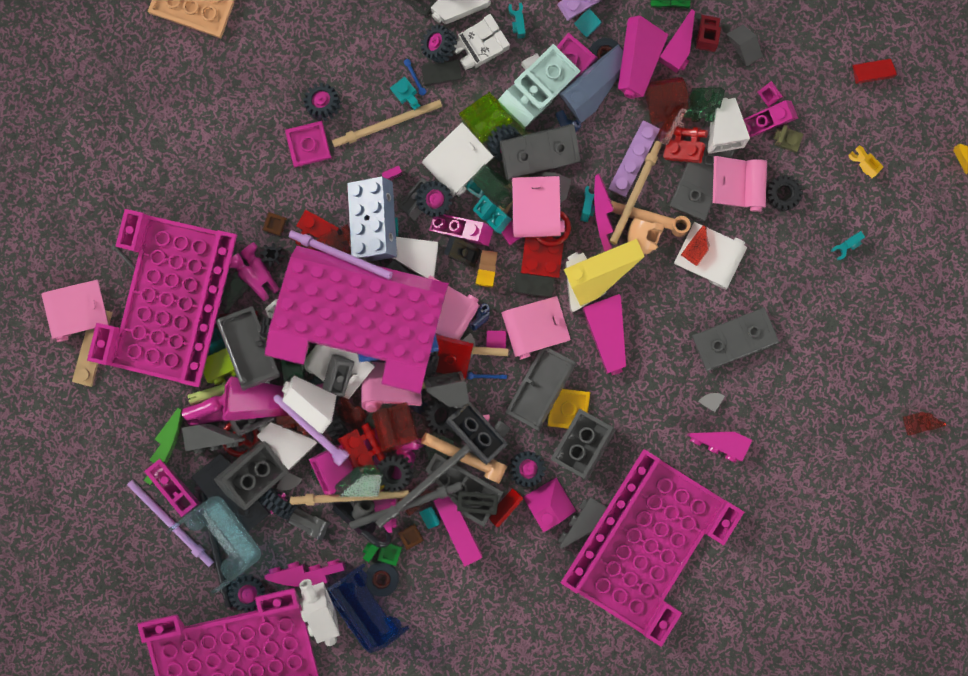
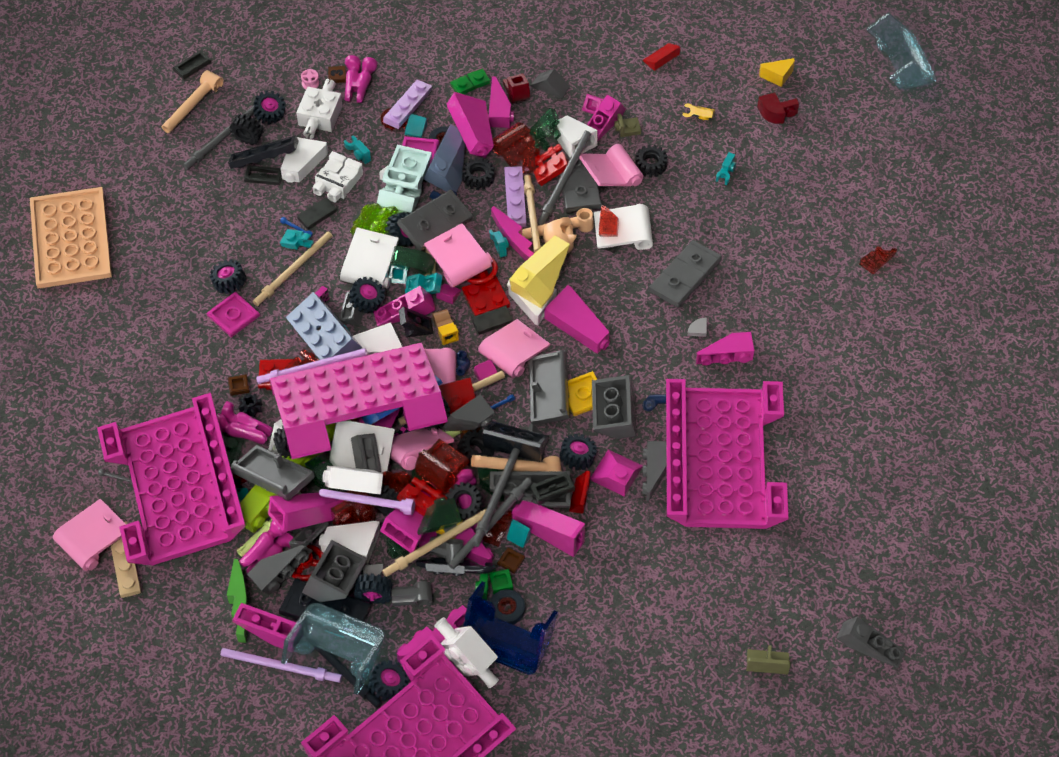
camera: 30 degrees left, 30 degrees down
(438, 43) = (302, 190): black wheel -> none
(618, 103) = (478, 165): none -> black tyre
(624, 452) = (653, 400): none -> dark blue arm
(654, 194) = (548, 208): none -> dark grey bar
(938, 202) = (776, 111): none -> dark red brick

